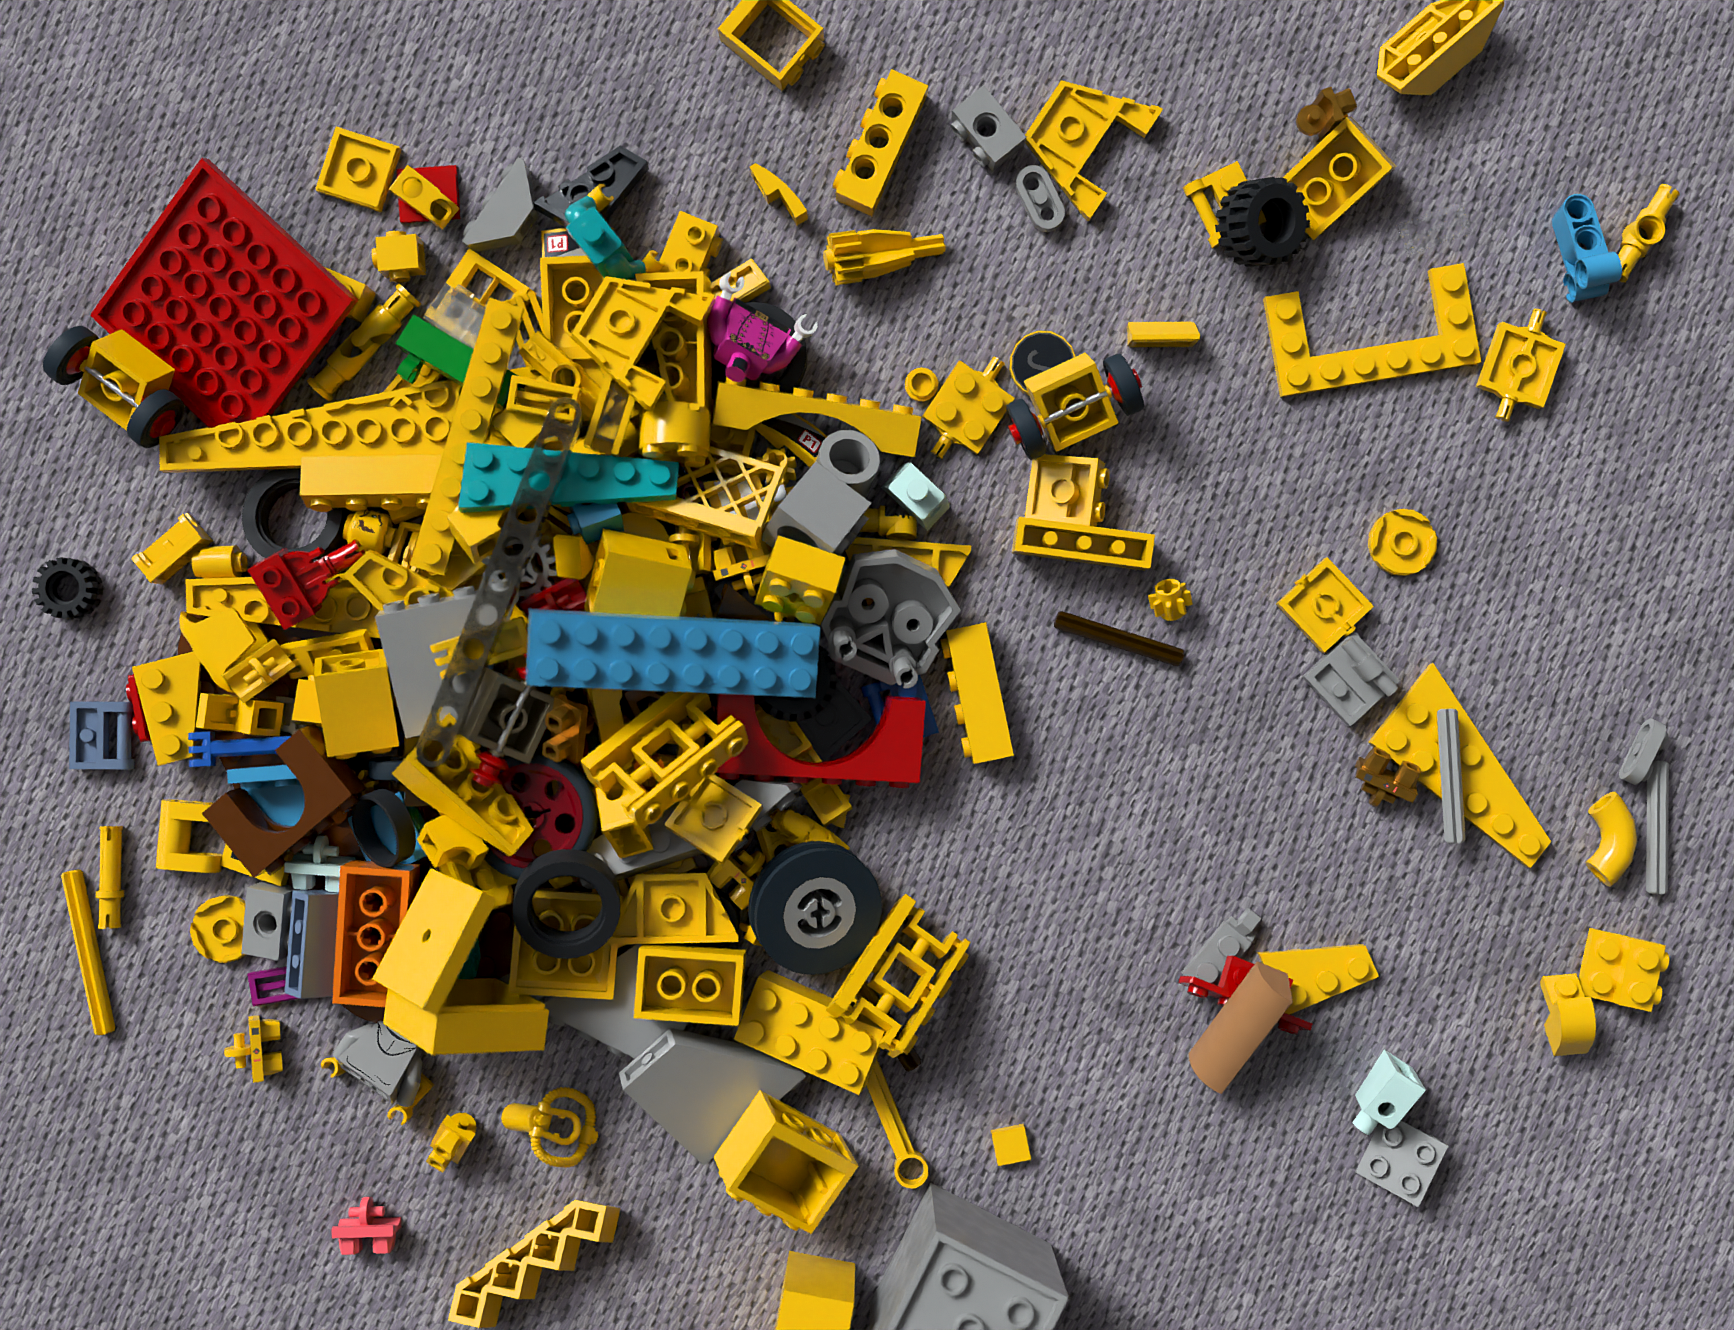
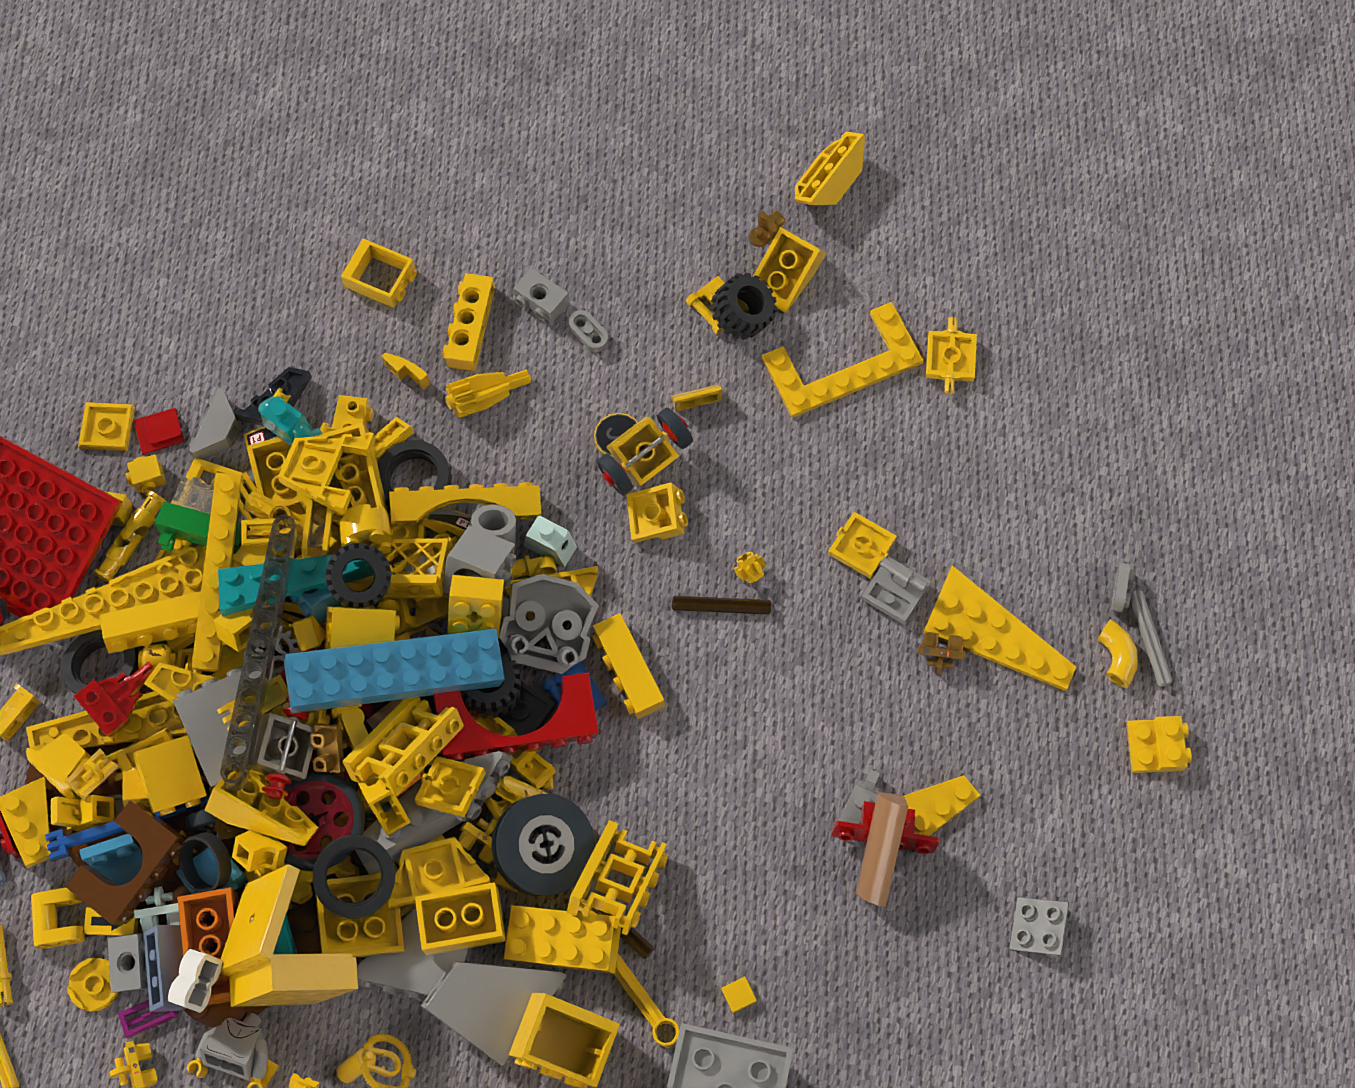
camera: 15 degrees left, 20 degrees down
(219, 562) = (48, 711): yellow brick -> none
(341, 988) = (195, 978): none -> white brick
(423, 197) = (156, 429): yellow leg -> none
(652, 533) = (381, 571): none -> black tyre
(727, 567) = (435, 620): yellow hips -> none
(748, 338) = (405, 462): dark pink torso -> none
(921, 384) = (535, 469): yellow plate -> none
(967, 407) = (571, 477): yellow plate -> none
(1072, 129) = (599, 283): yellow wing -> none
(1083, 543) = (676, 543): yellow brick -> none
(1387, 1093) = (1012, 865): light aqua torso -> none
(1389, 544) = (905, 498): yellow tile -> none
(1451, 776) = (986, 636): light grey axle -> none
(1571, 1016) = (1129, 786): yellow brick -> none
(1590, 269) = (969, 273): dark azure piece -> none
(1653, 222) = (1003, 262): yellow pin -> none

